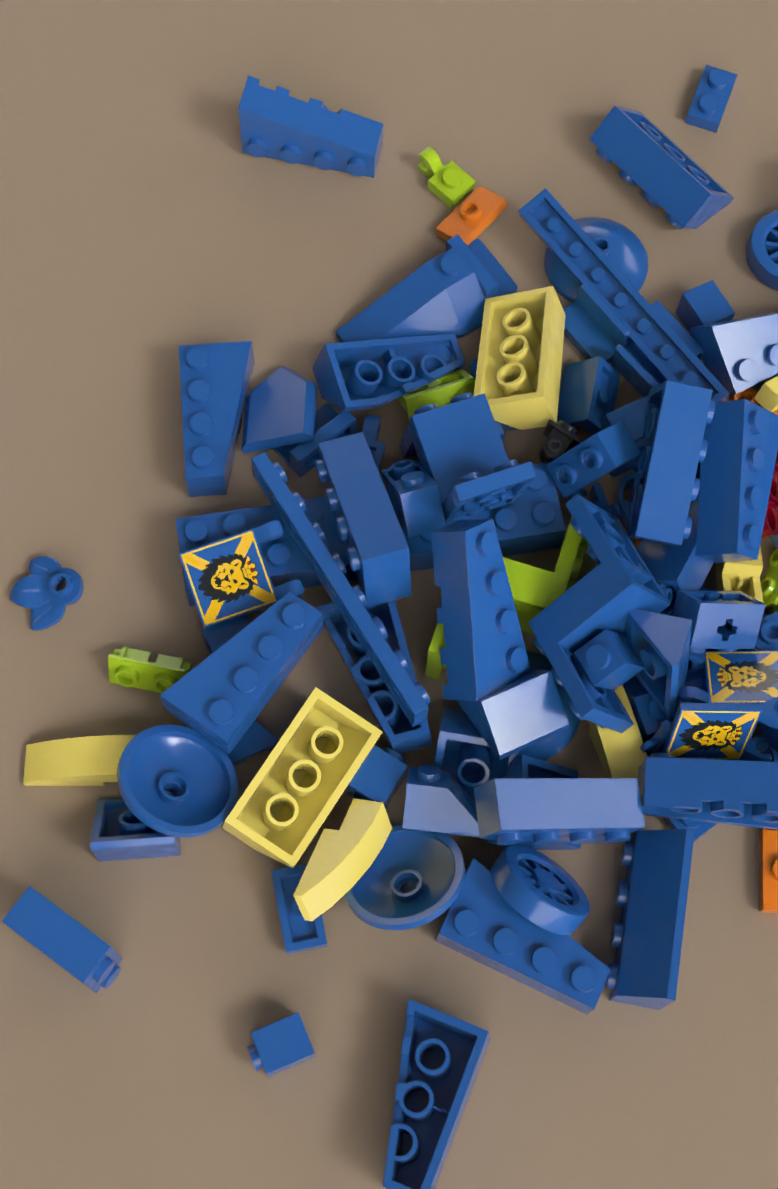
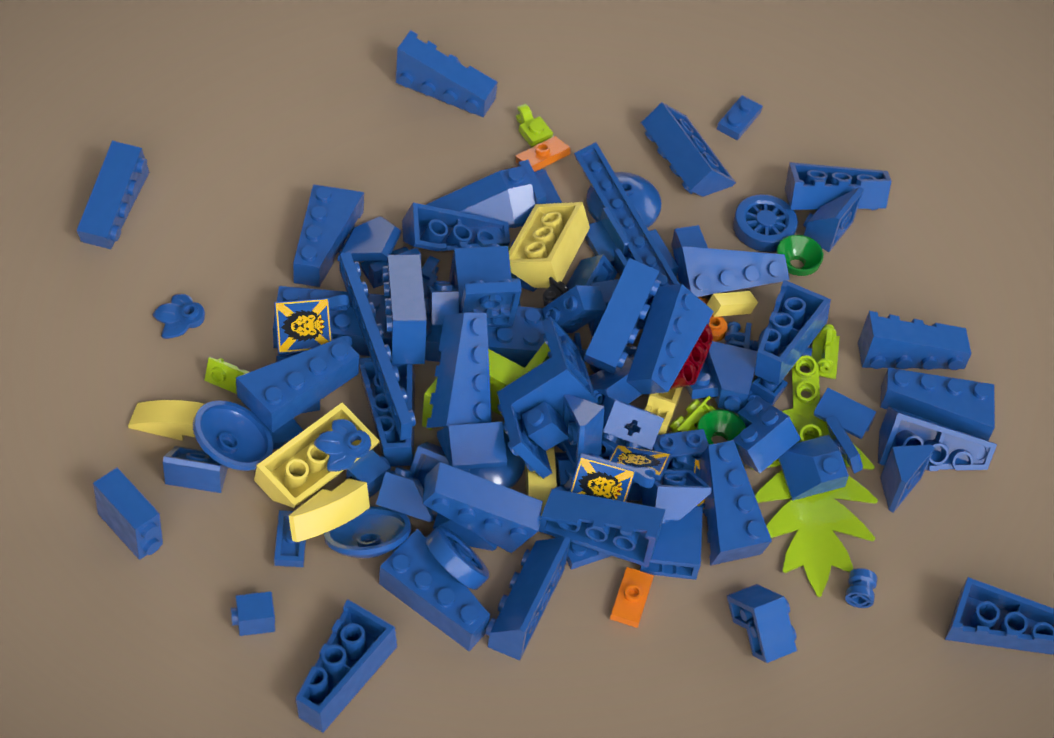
camera: 10 degrees right, 15 degrees down
(330, 759) = (339, 445): none -> blue plate

